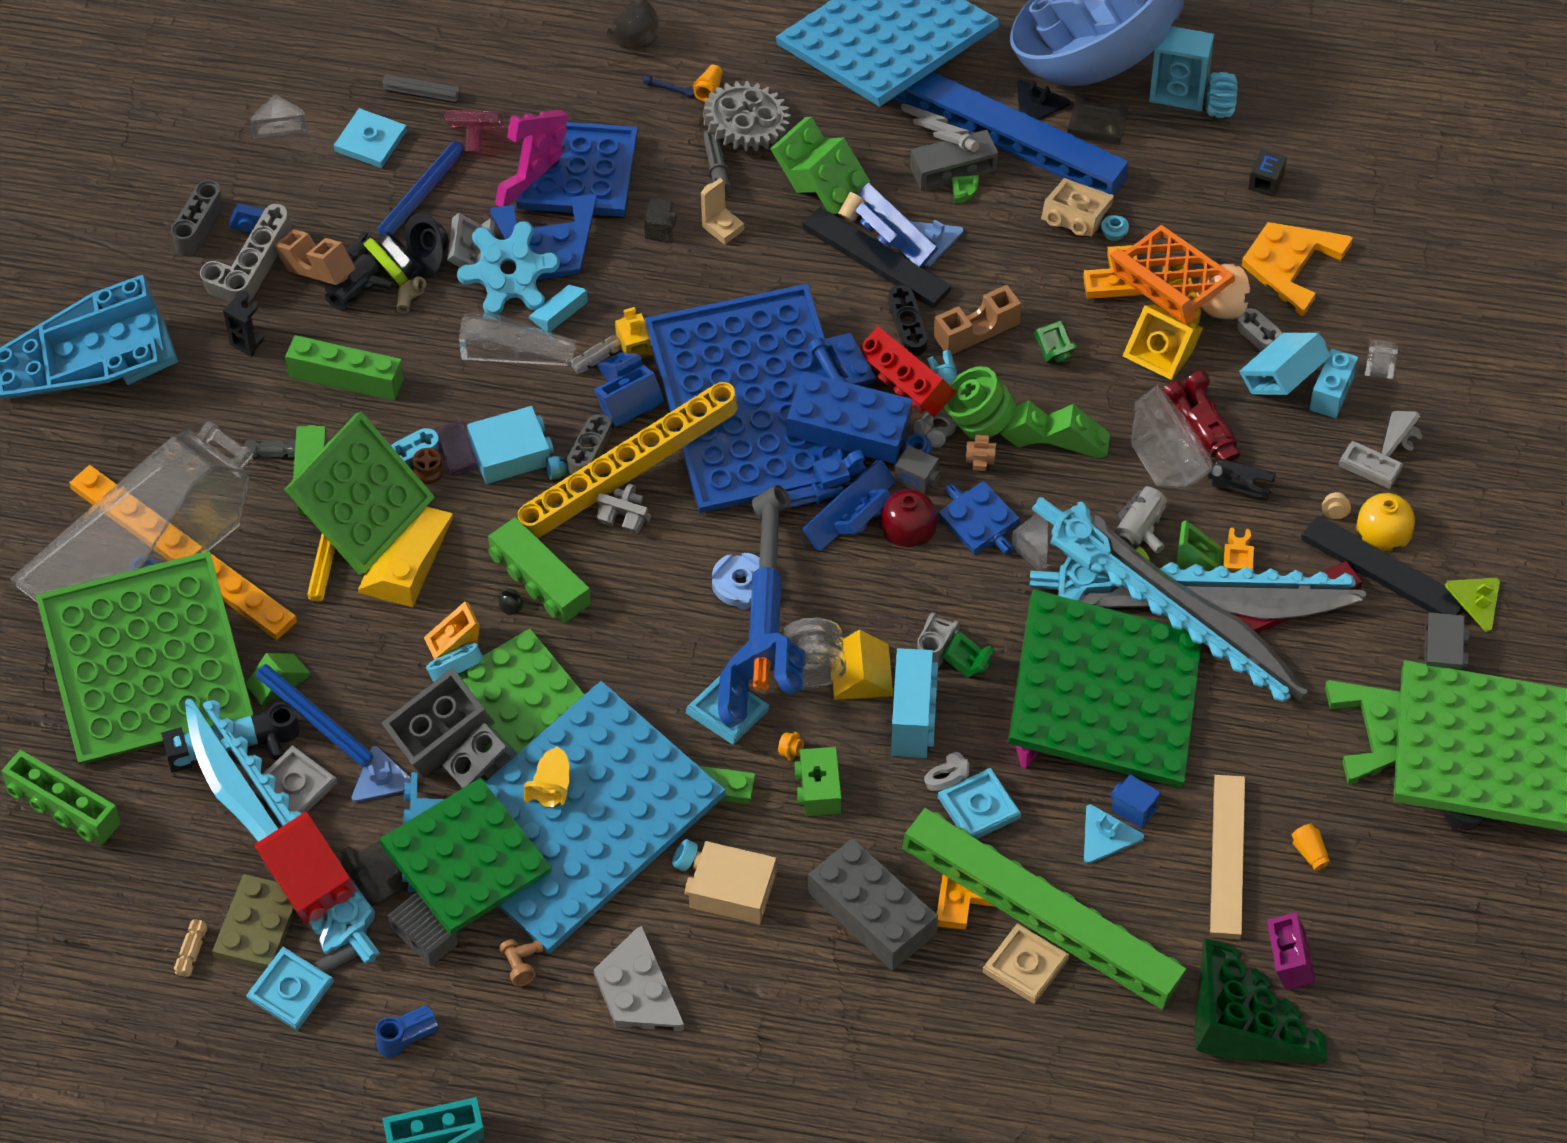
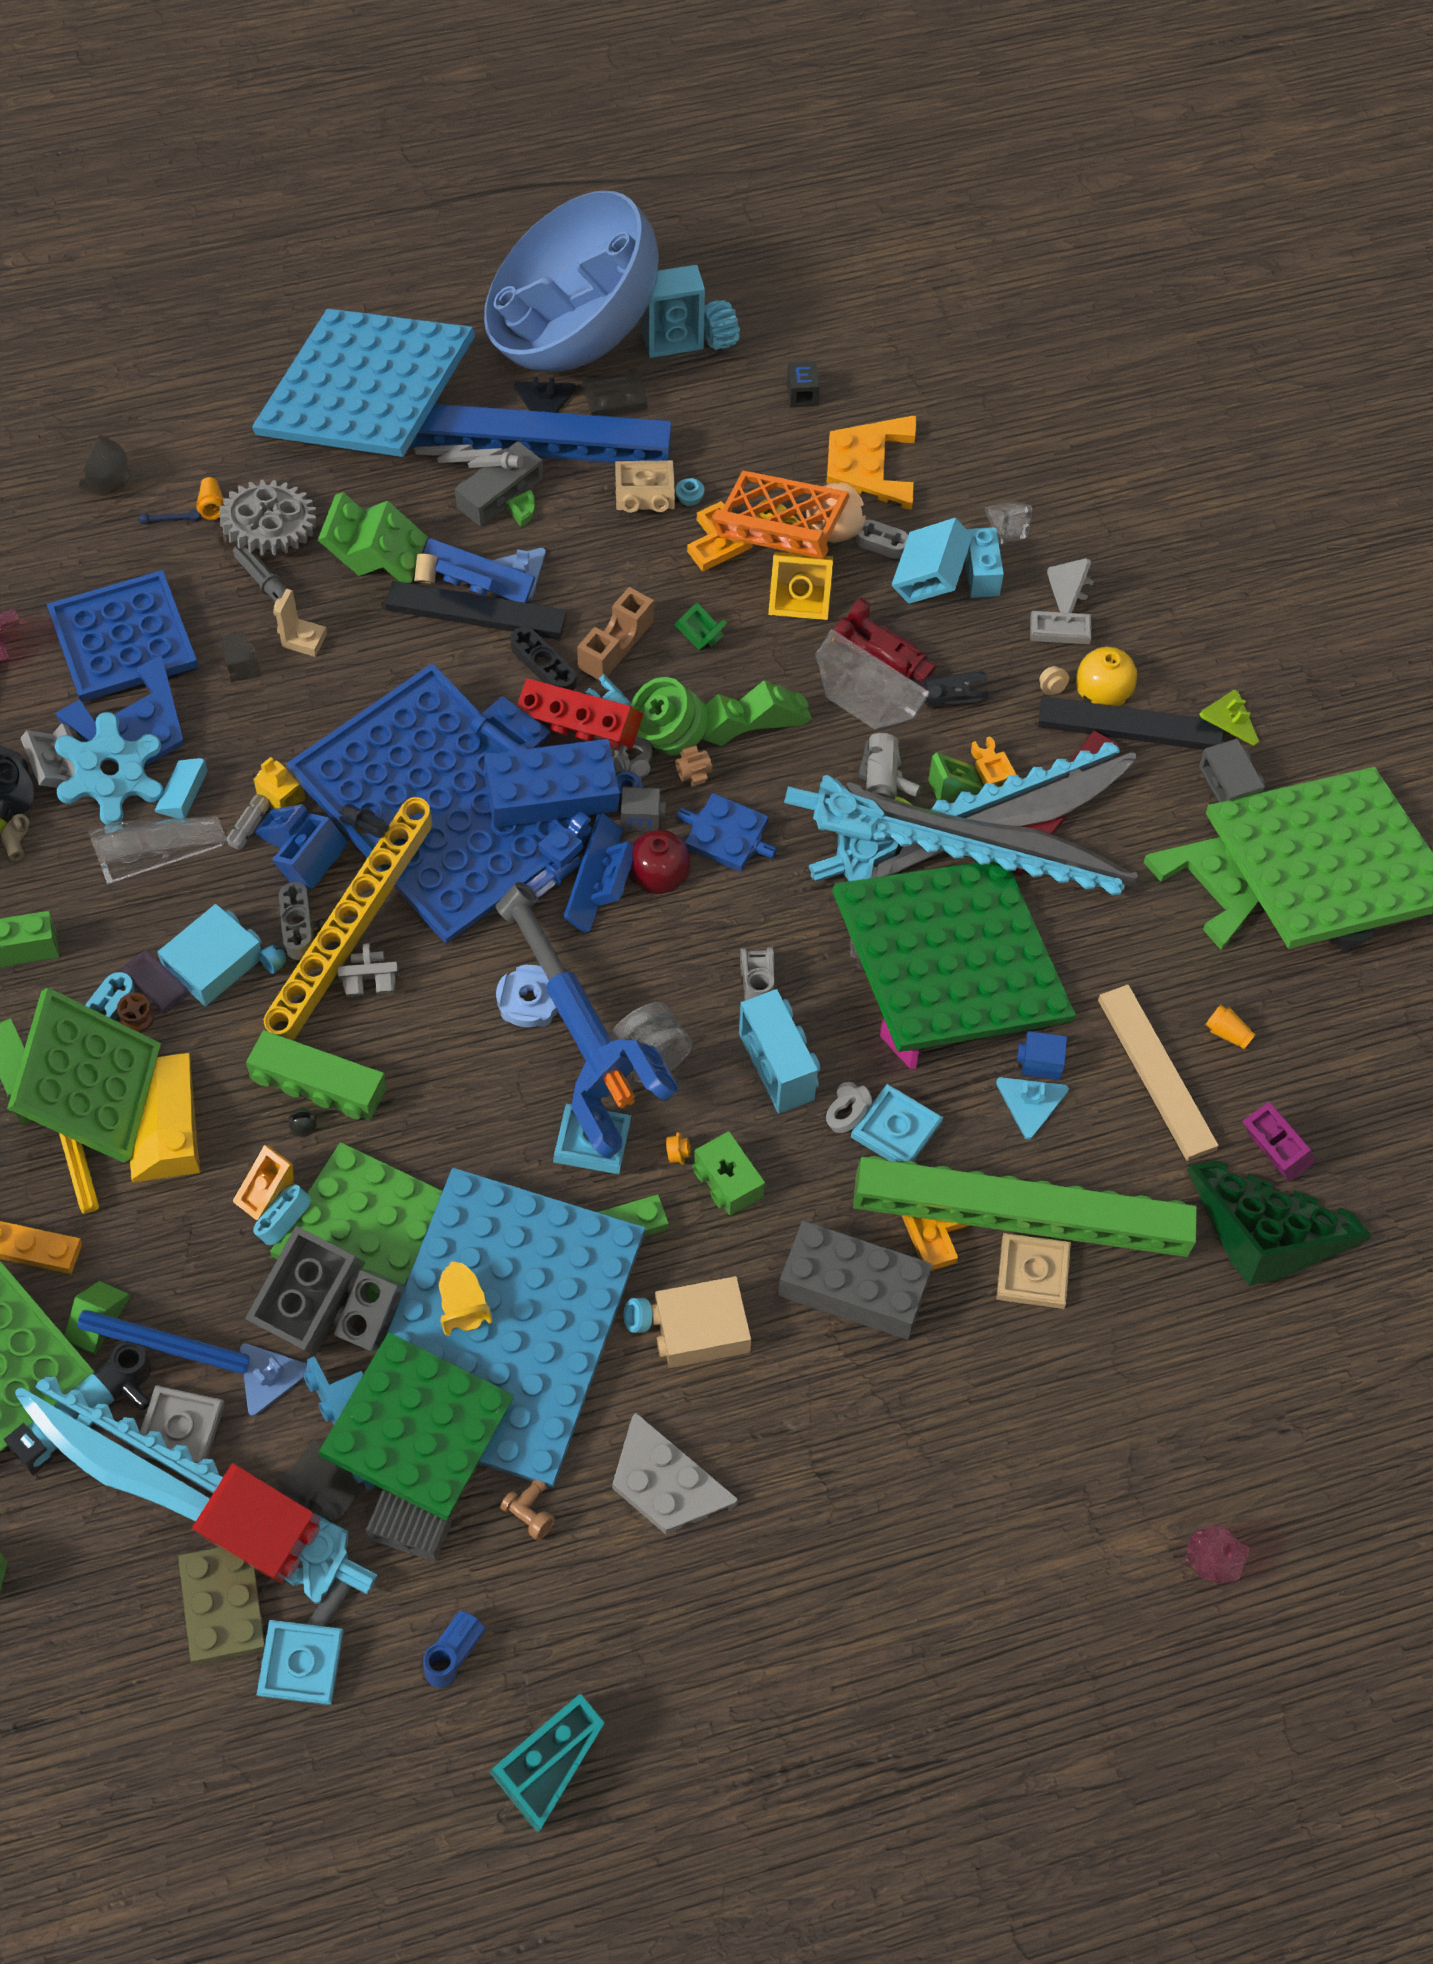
camera: 30 degrees left, 5 degrees up
(190, 948) = (163, 1668): tan axle -> none
(540, 150) = (81, 628): dark pink wing -> none
(678, 385) = (363, 821): none -> black axle
(866, 668) = (711, 1036): yellow slope -> none
(967, 656) = (798, 978): green bracket -> none
(1032, 541) = (796, 835): clear slope -> none

